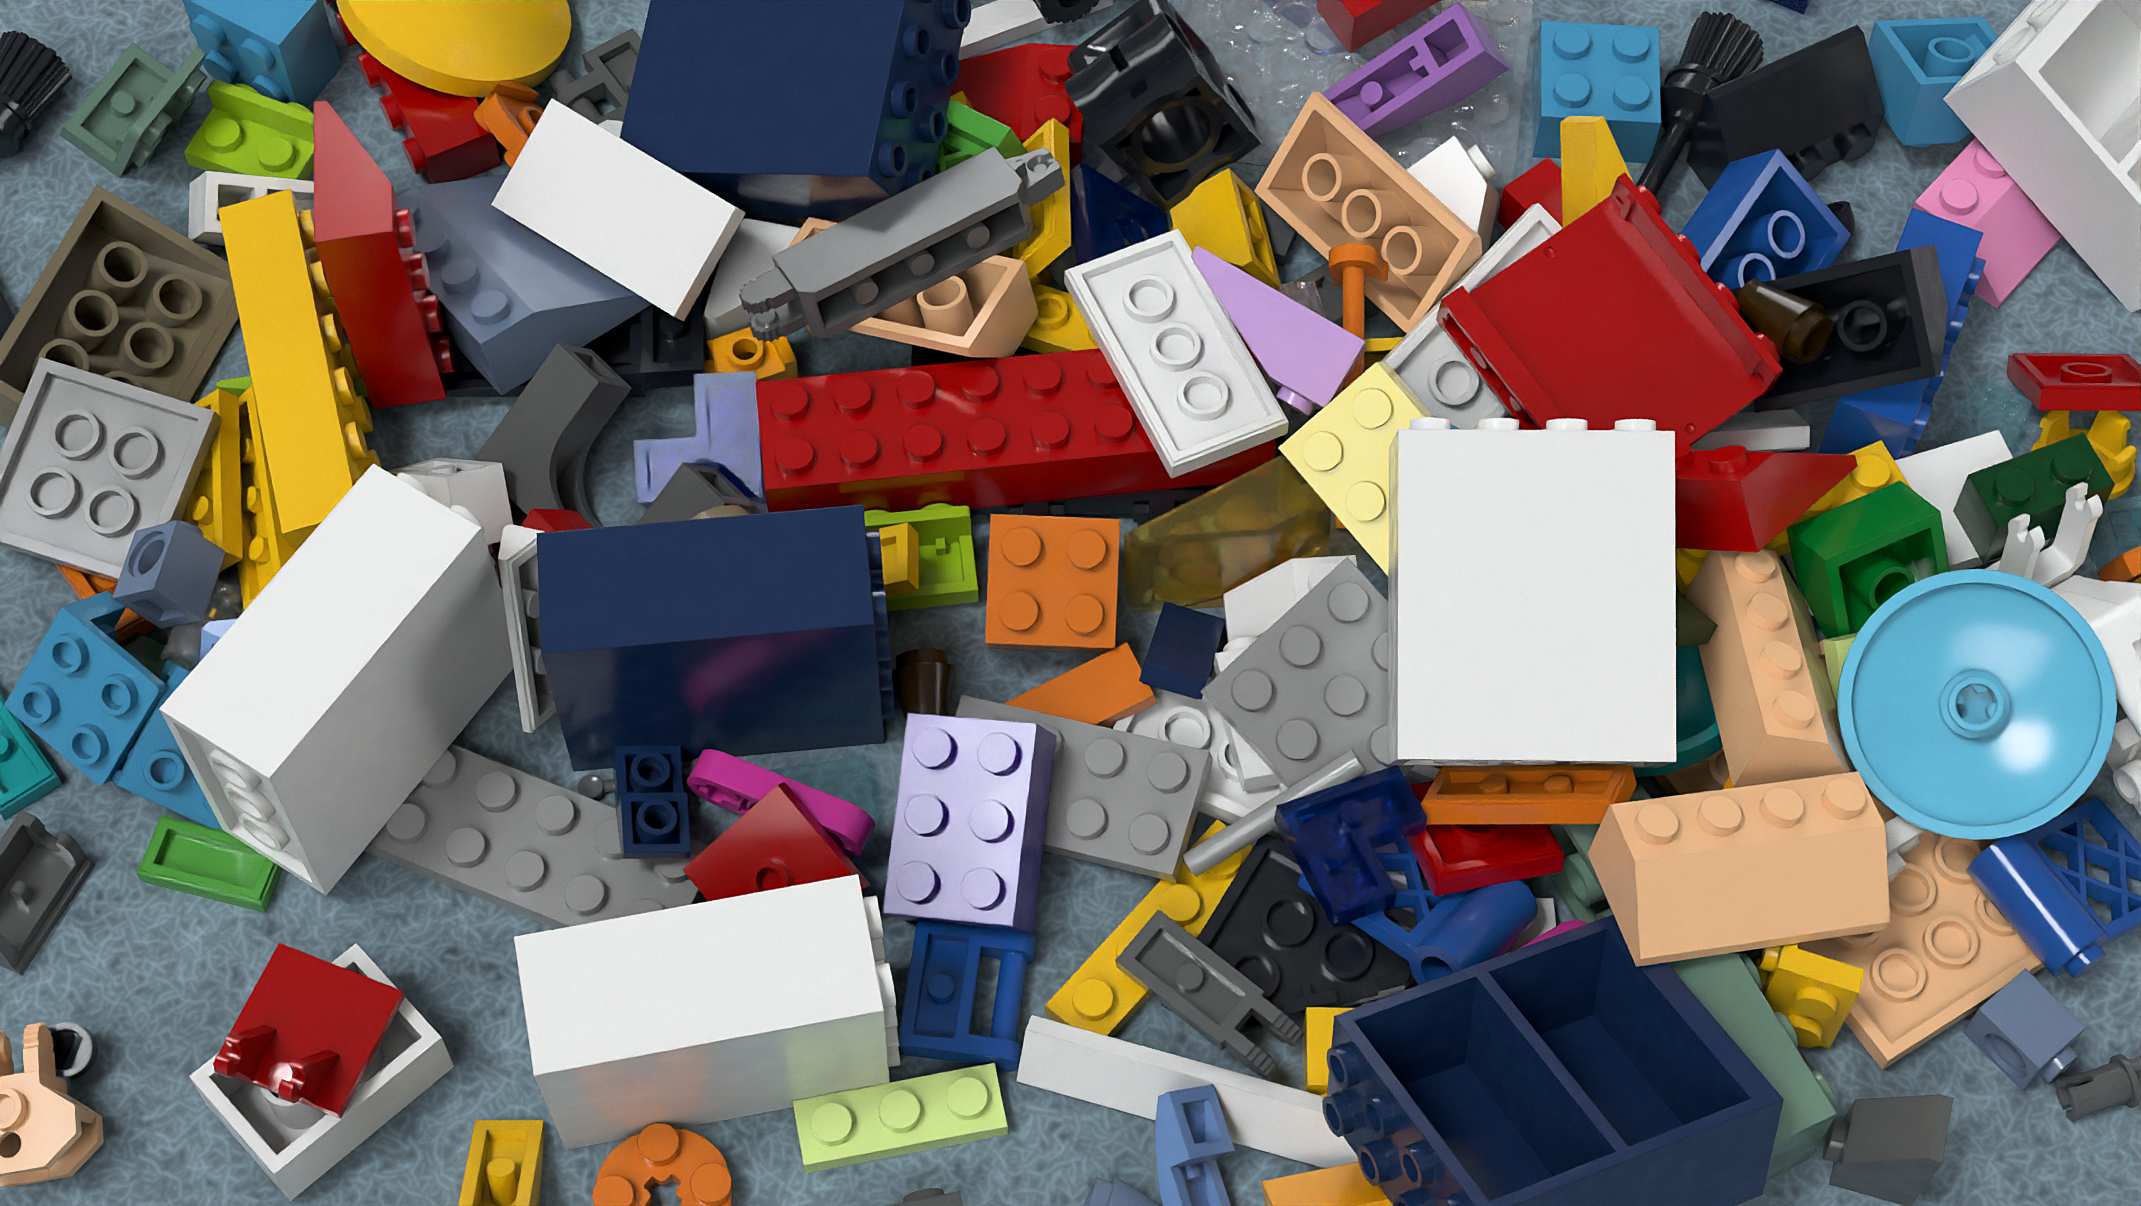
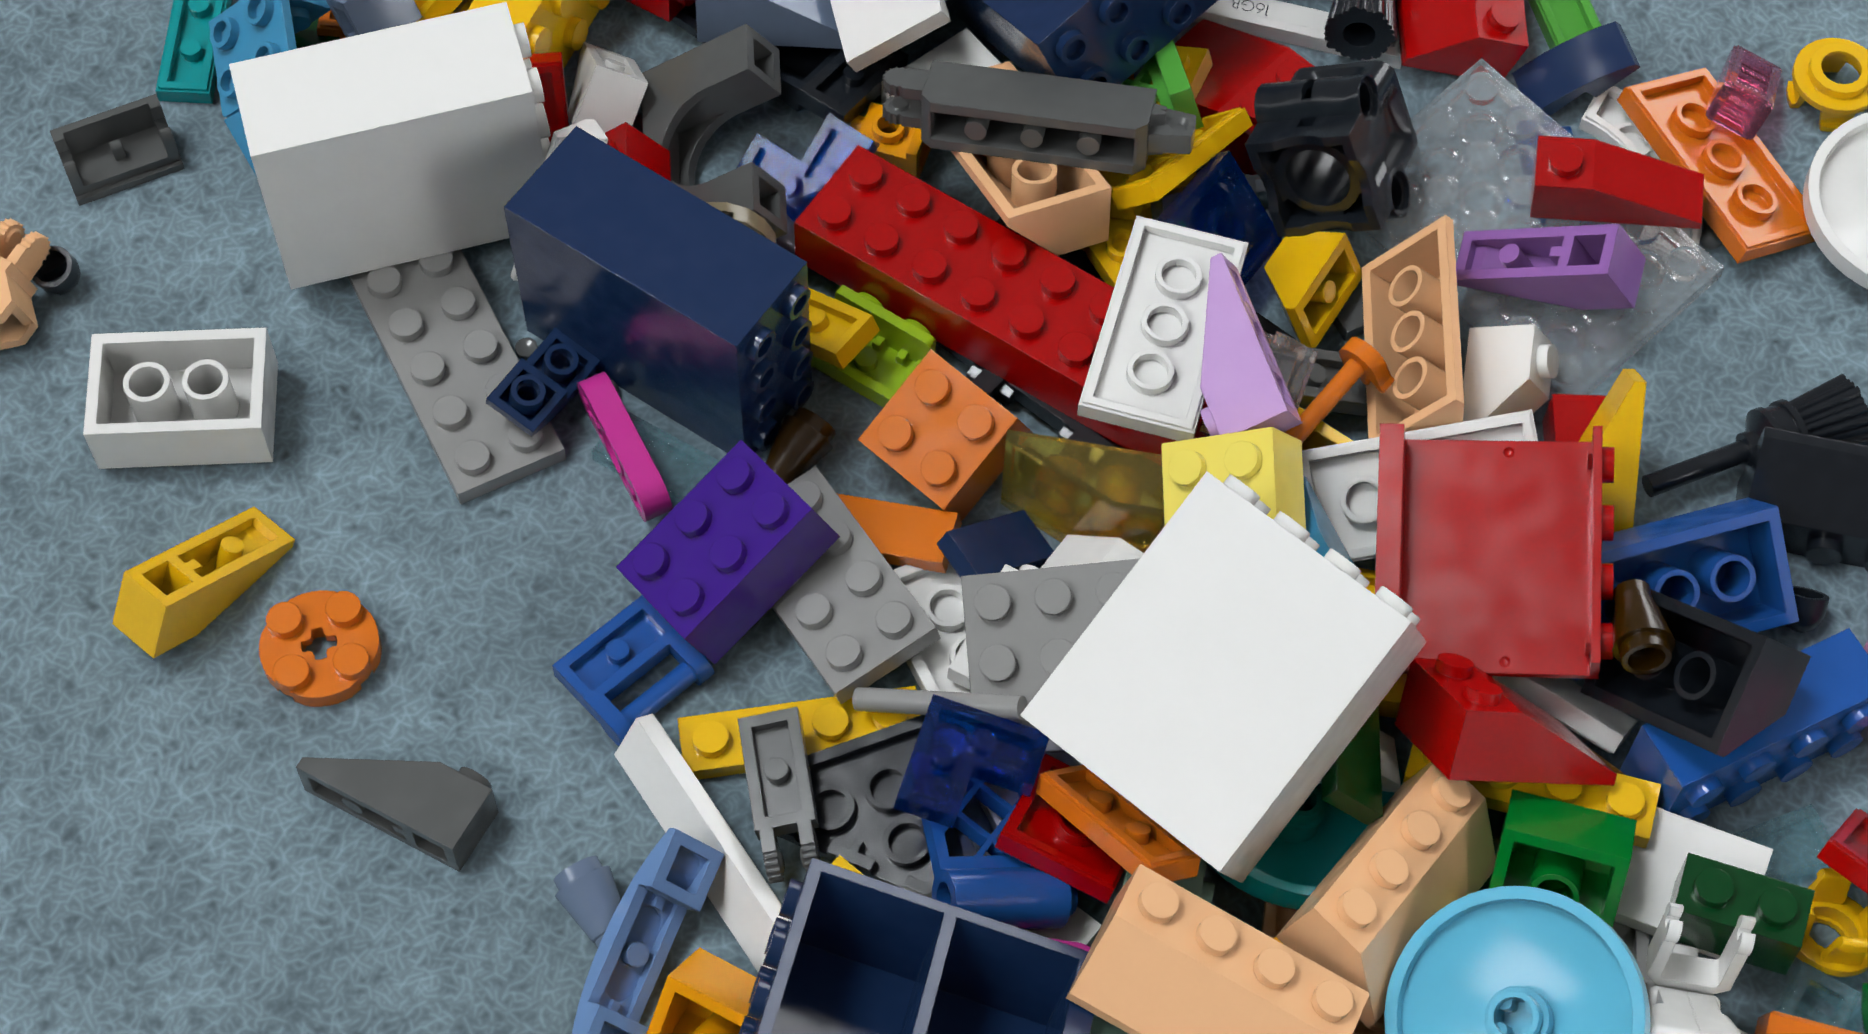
camera: 40 degrees right, 0 degrees up
(208, 865) = (243, 217): bright green tile -> none
(309, 1030) = (176, 358): red plate -> none
(708, 1010) = (421, 534): white container -> none
(769, 850) = (574, 491): red plate -> none
(900, 1117) = (515, 717): yellowish green plate -> none
(1597, 73) = (1706, 375): dark azure brick -> none

